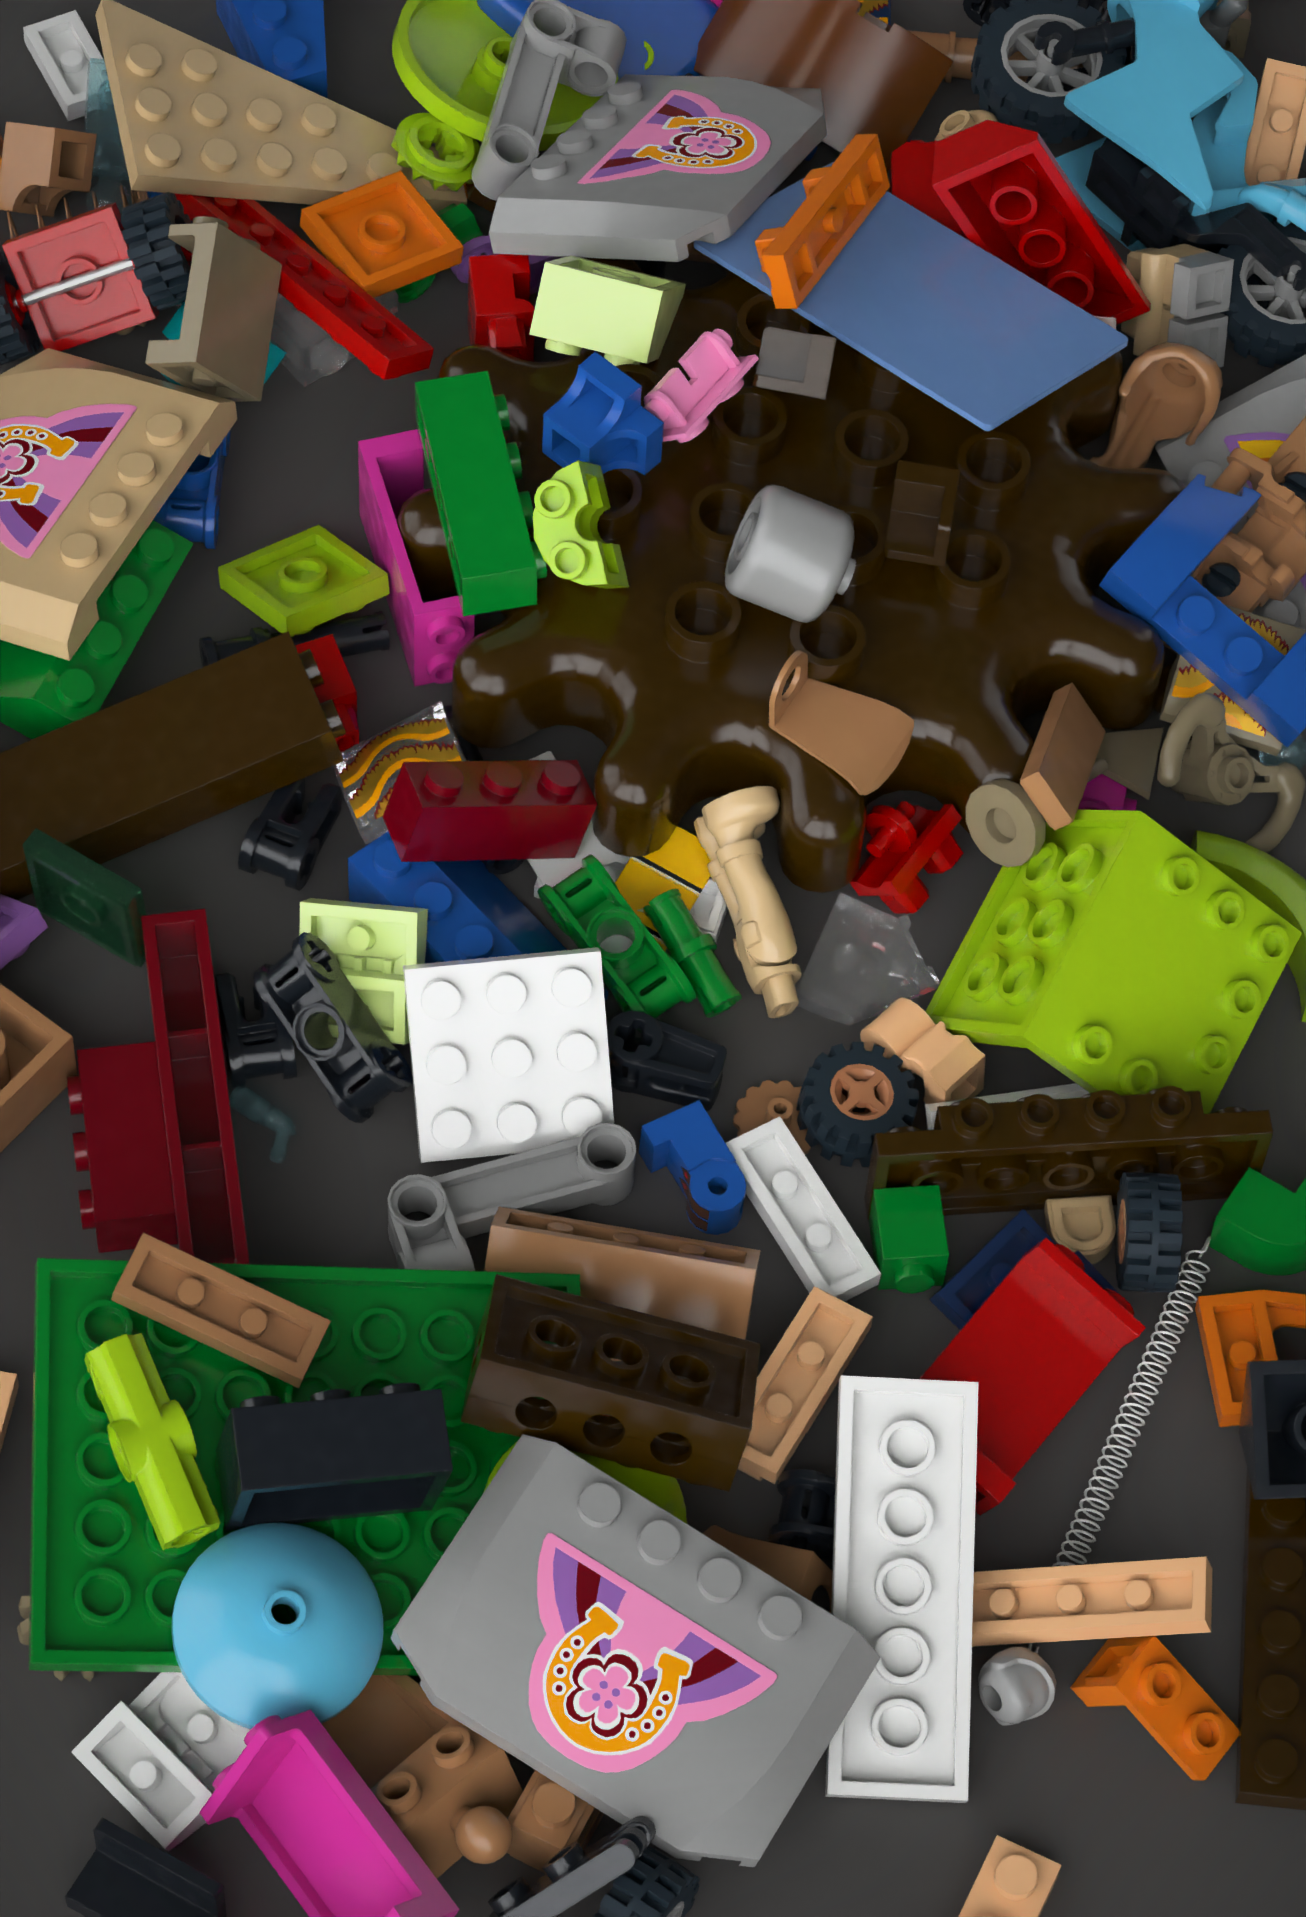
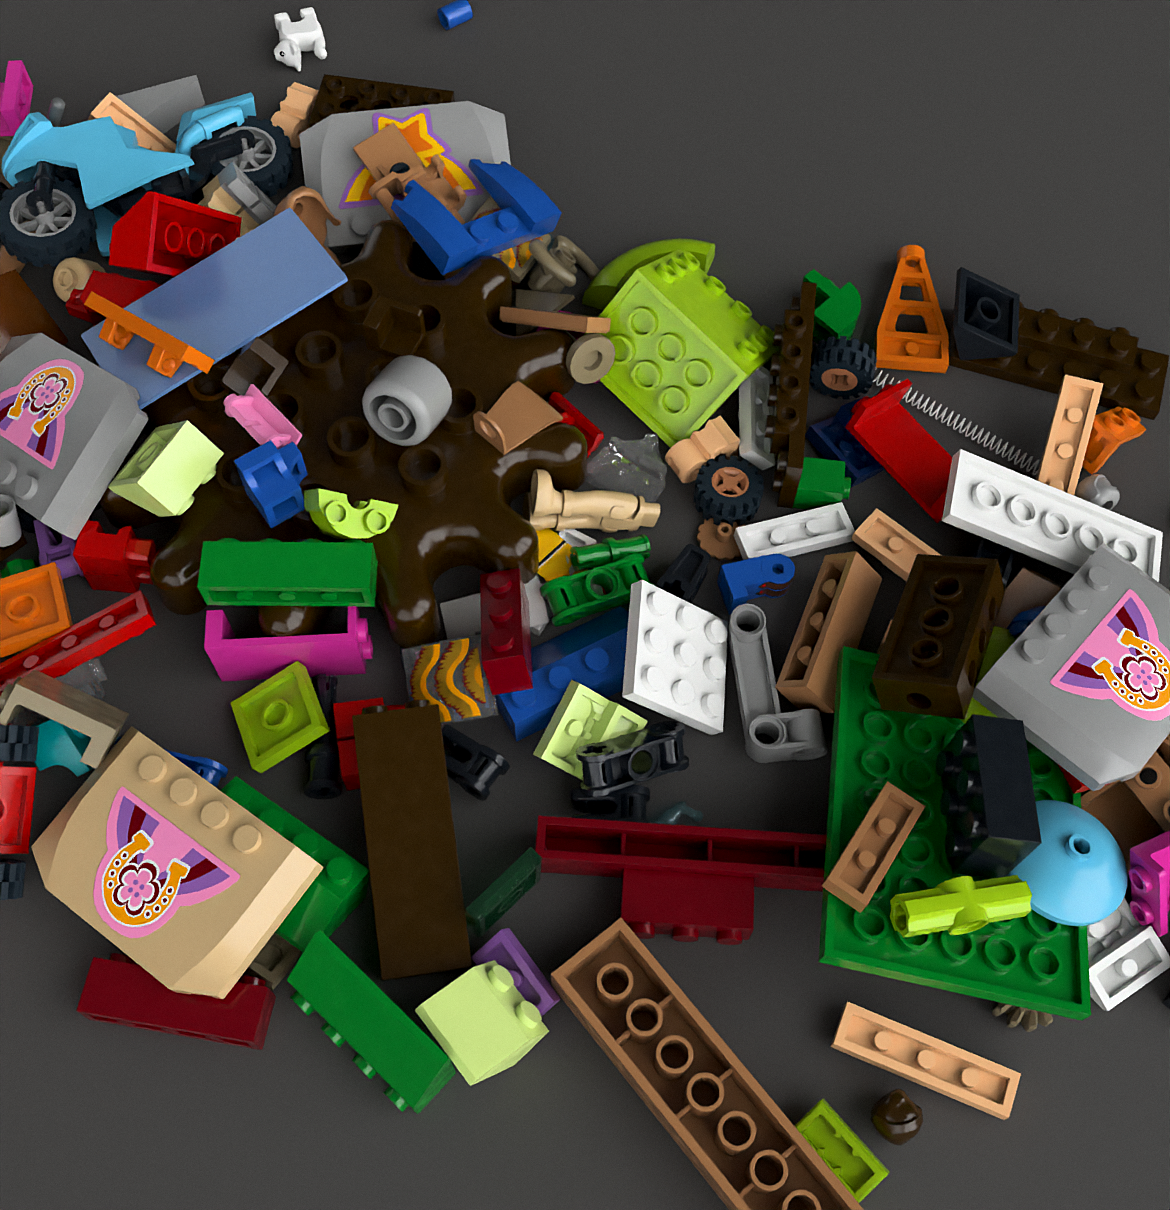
camera: 75 degrees left, 5 degrees up
(1082, 1224) = (821, 405): tan tile -> none

